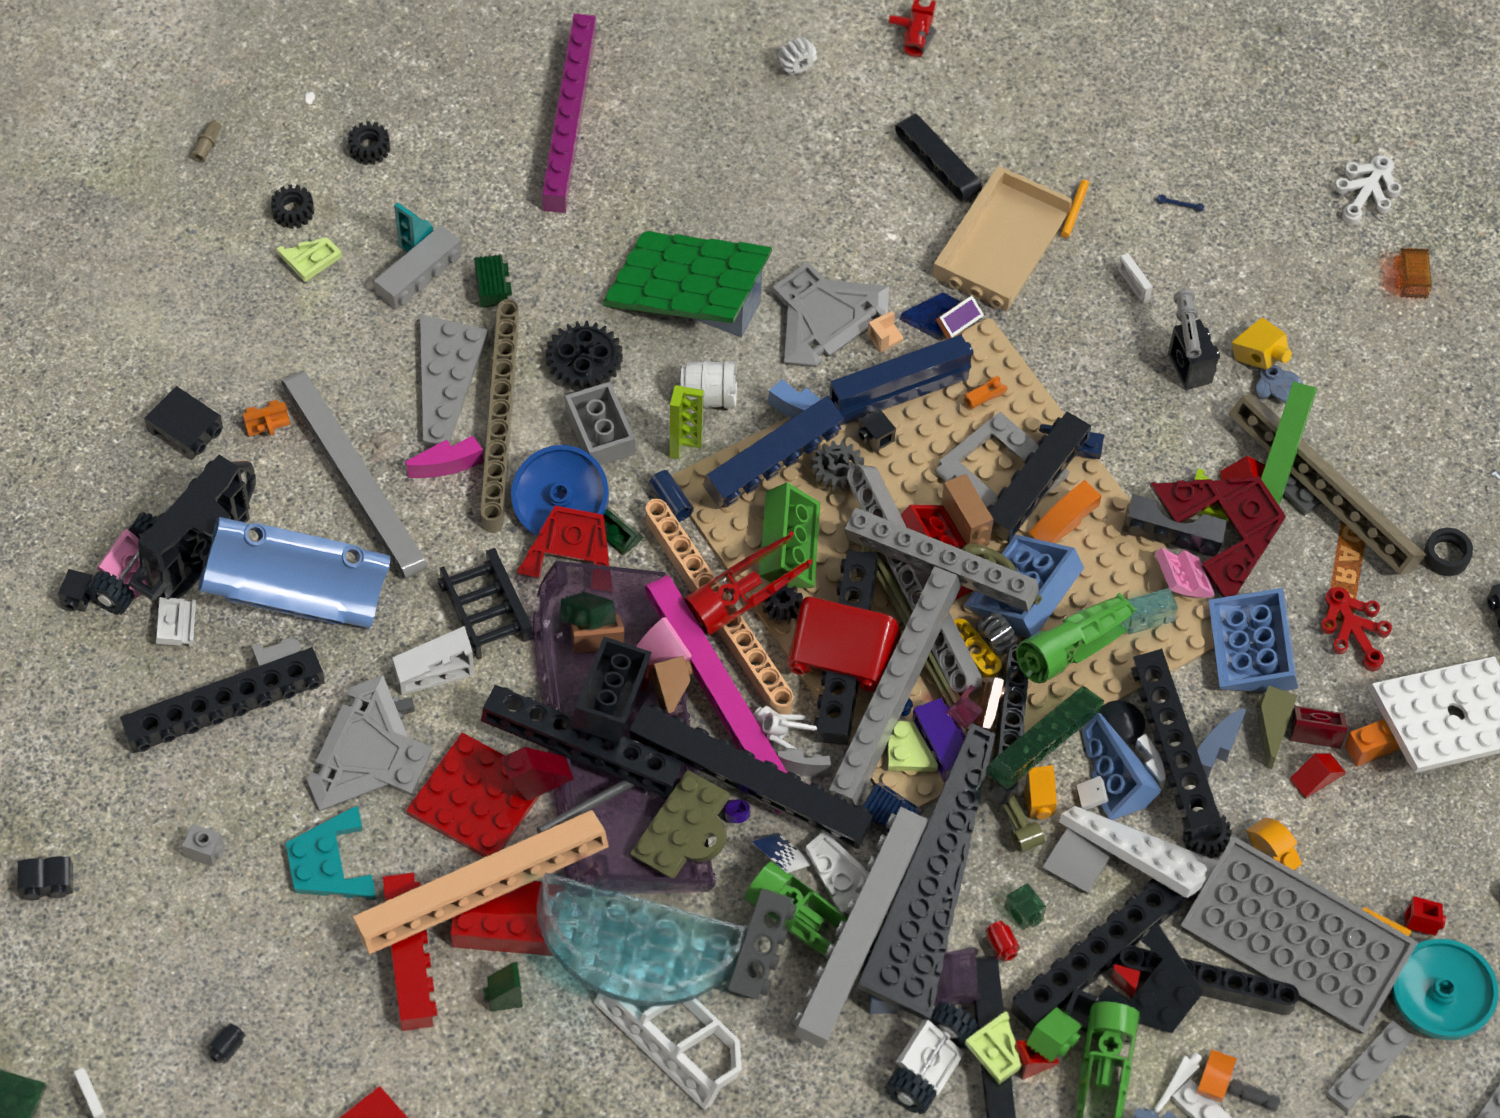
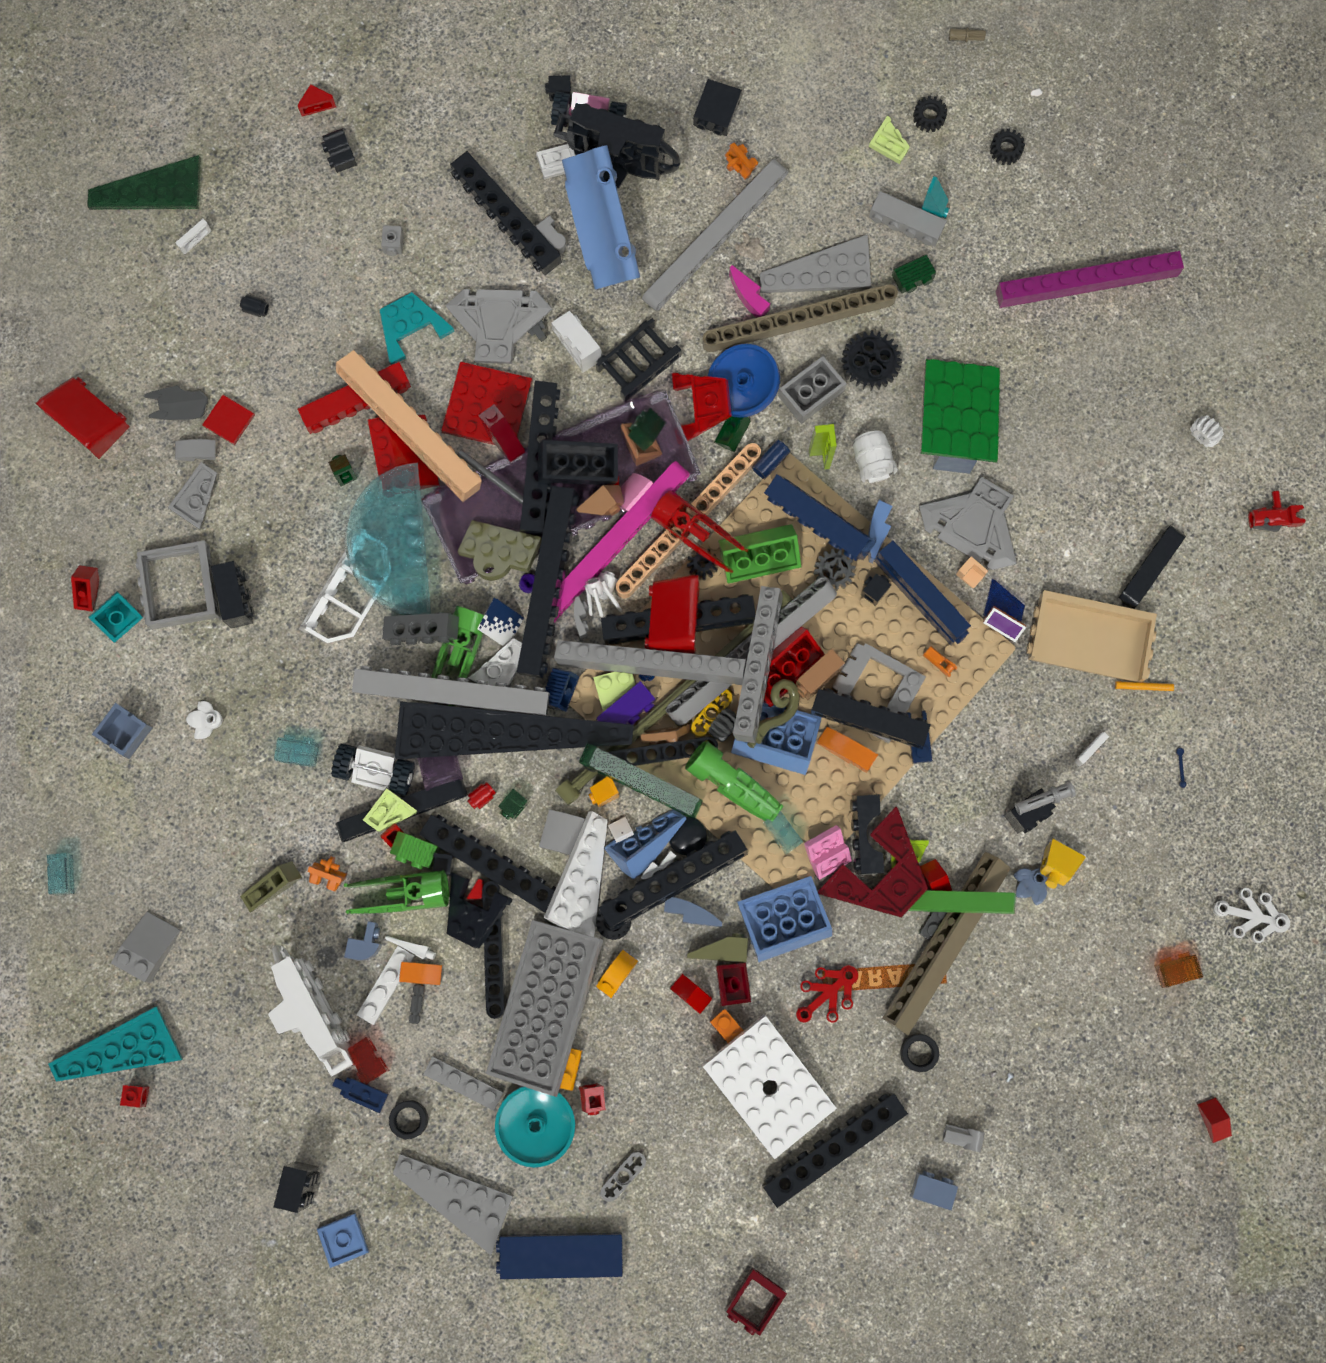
camera: 75 degrees right, 20 degrees up
(964, 709) = (651, 718): clear pink panel -> none

